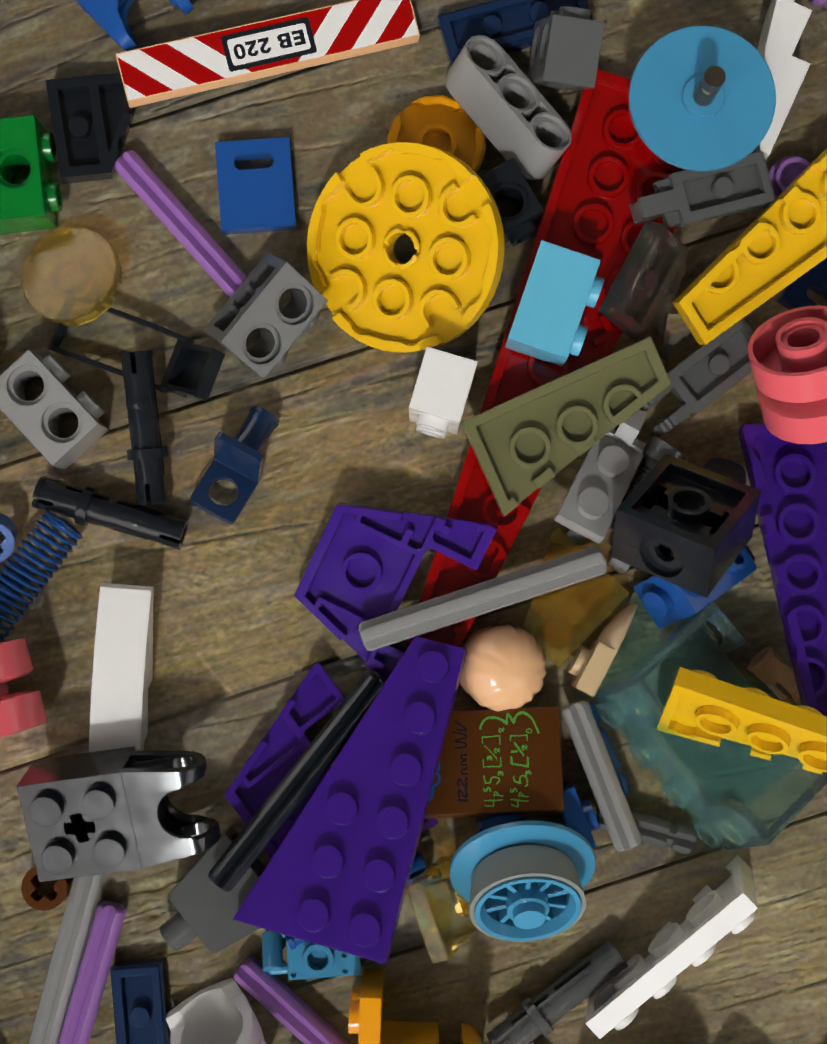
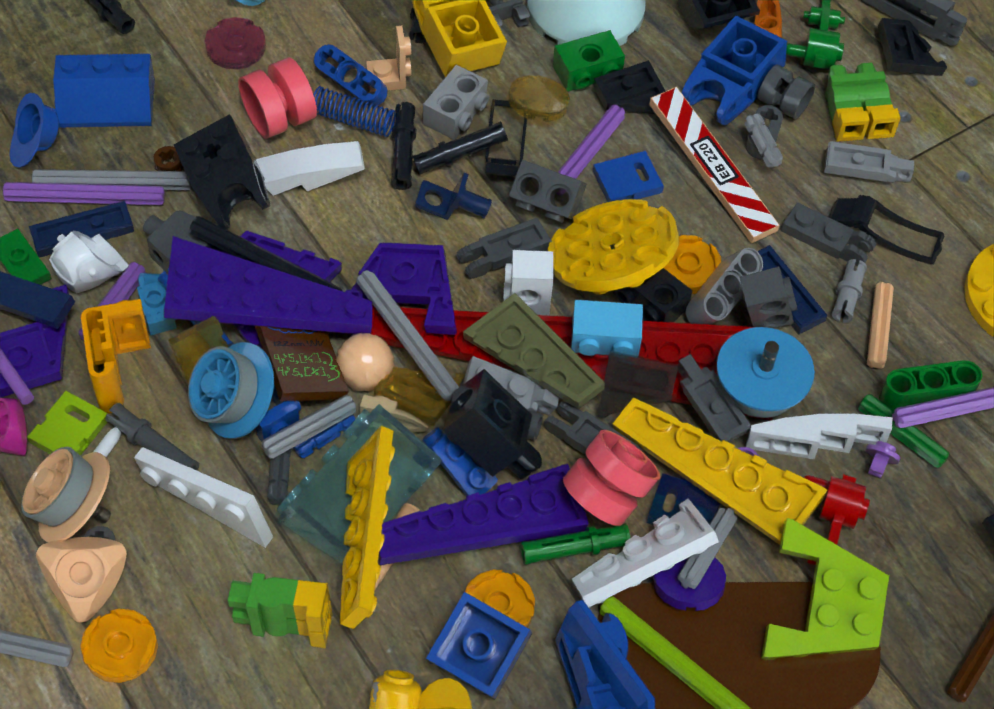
camera: 70 degrees right, 30 degrees down
(344, 403) = (500, 245): none -> dark grey hinge

